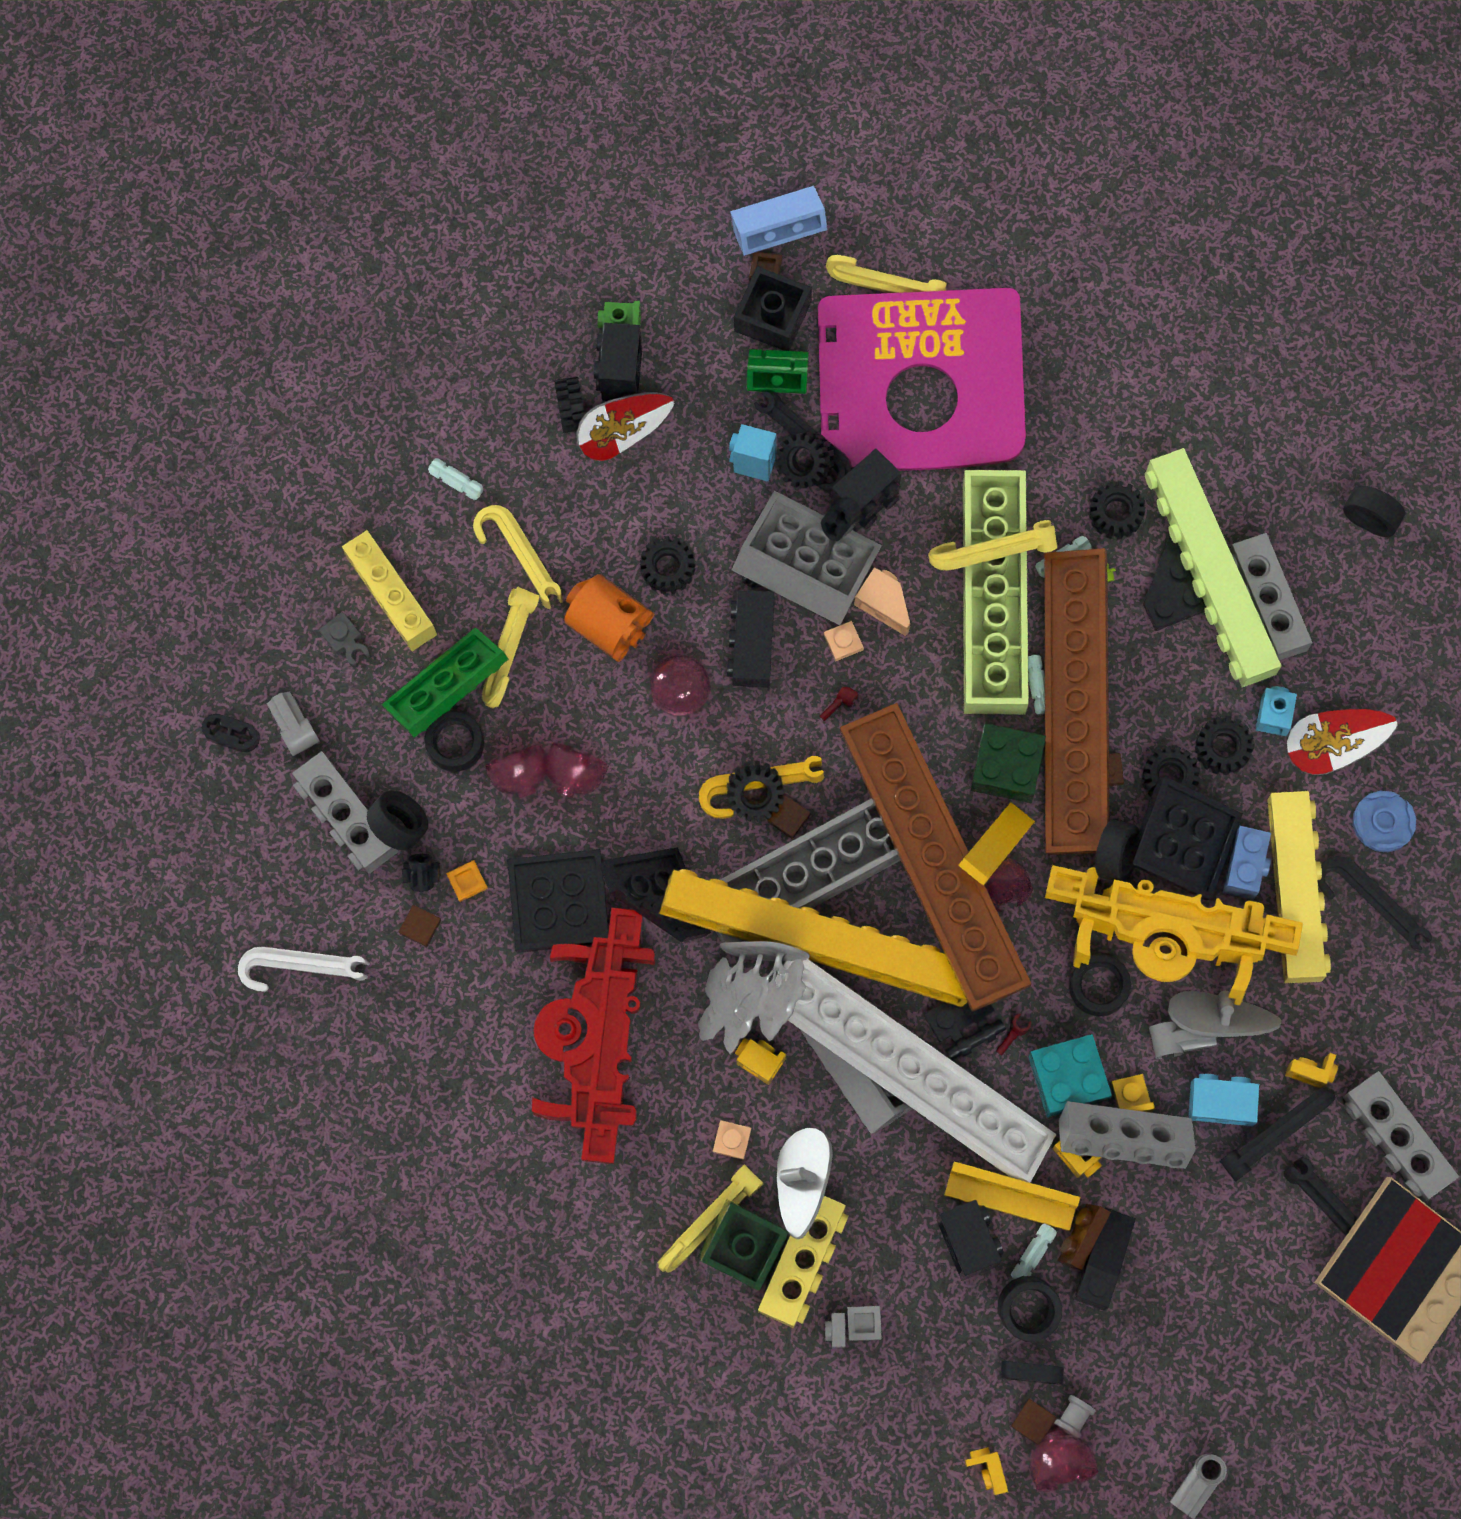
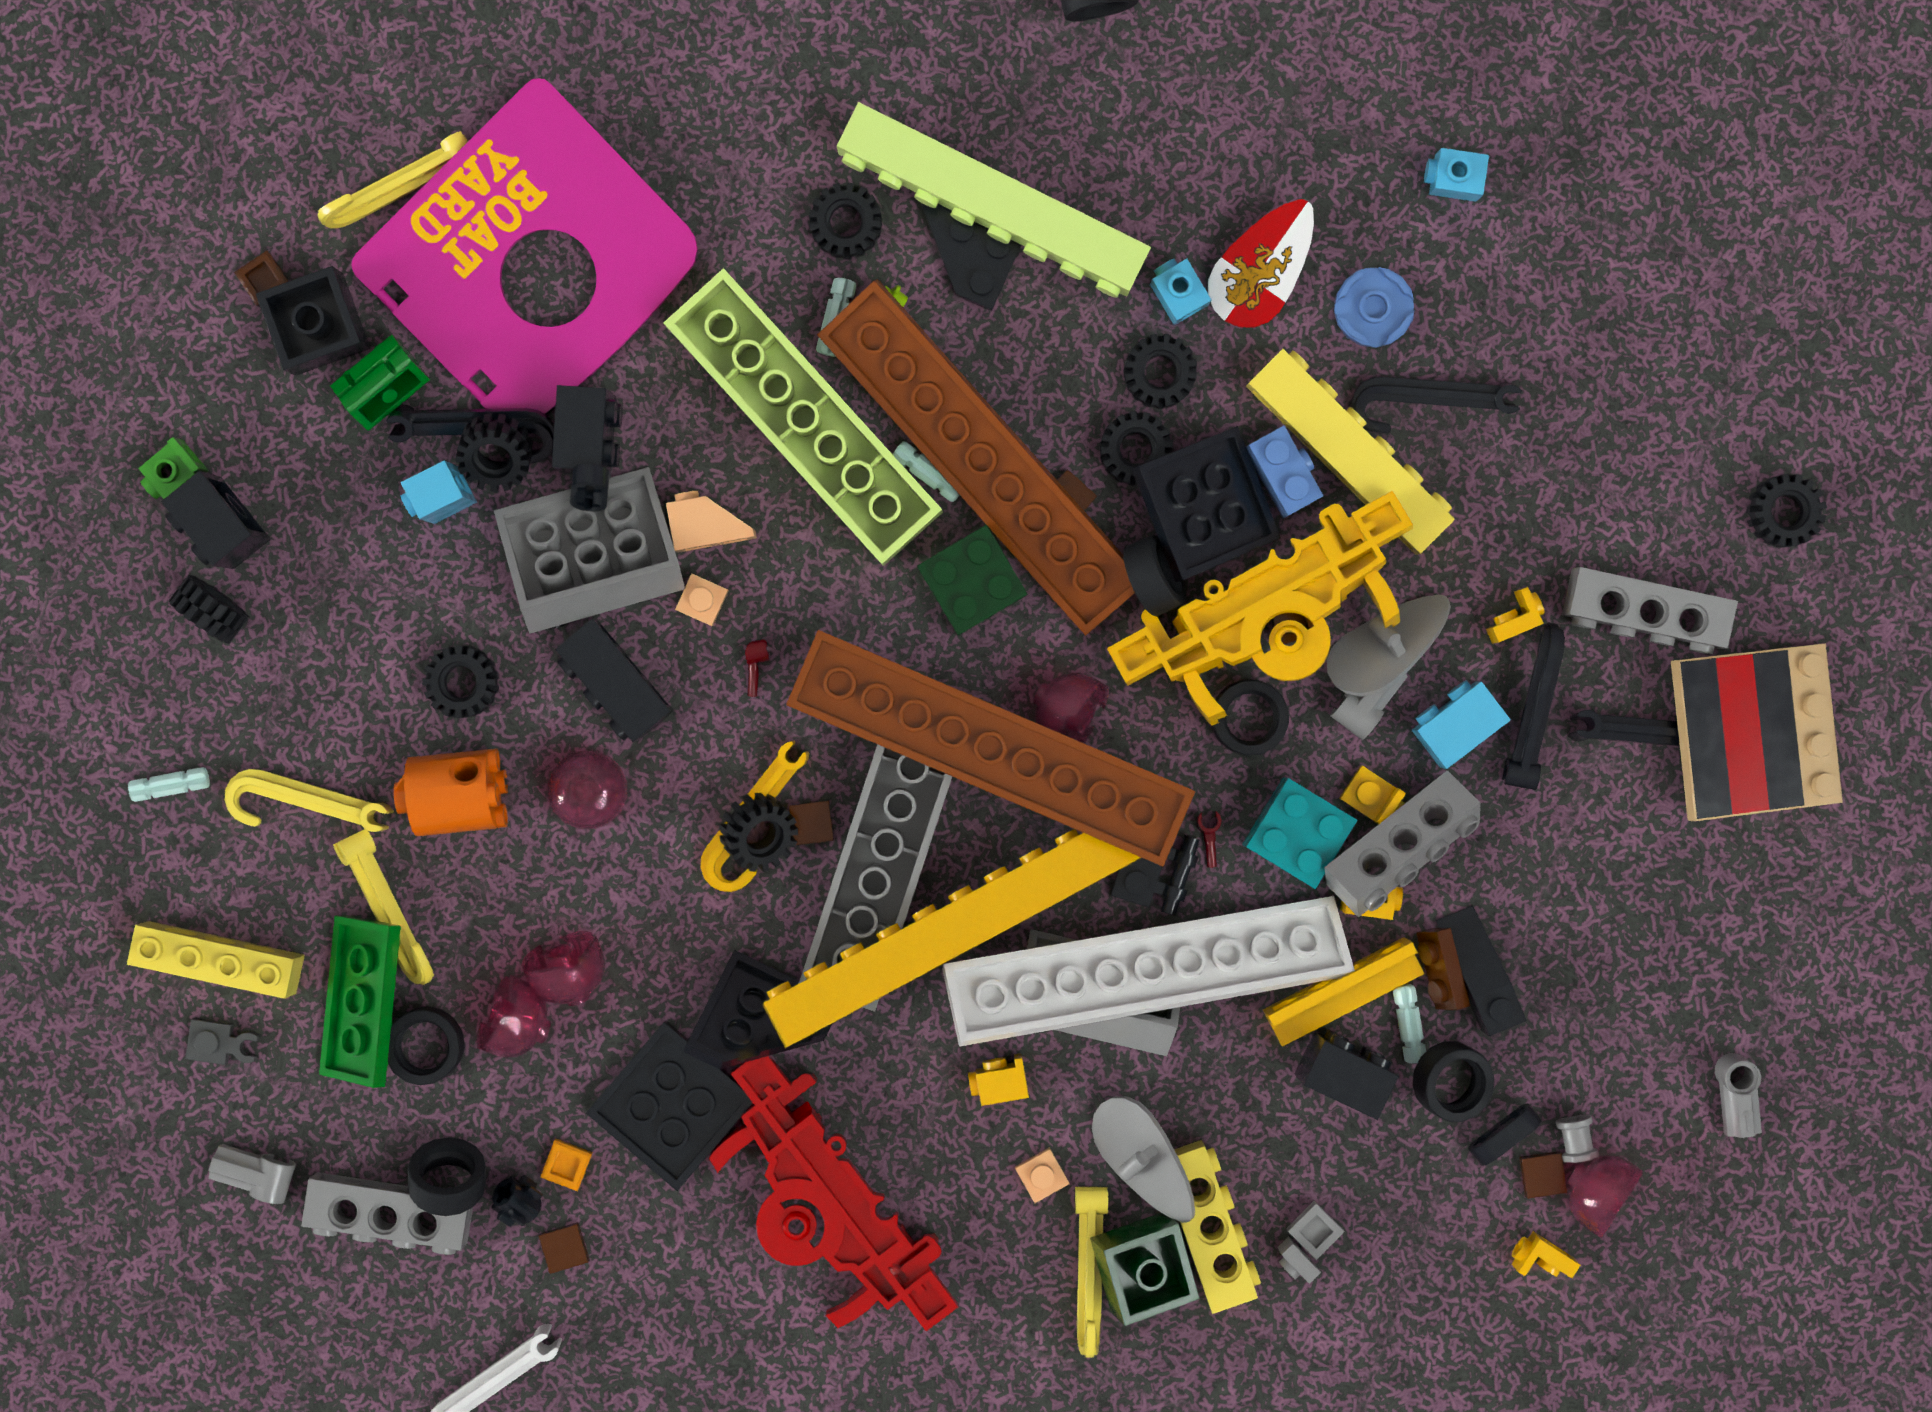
camera: 50 degrees left, 15 degrees up
(232, 725) = (205, 1243): black beam -> none
(621, 423) = (277, 580): shield -> none
(750, 995) = (942, 1055): light grey plant -> none
(779, 220) = (229, 217): light blue brick -> none
(949, 558) = (803, 327): light yellow piece -> none
(996, 843) = (1037, 678): yellow tile -> none
(1260, 554) = (1026, 139): light grey brick -> none

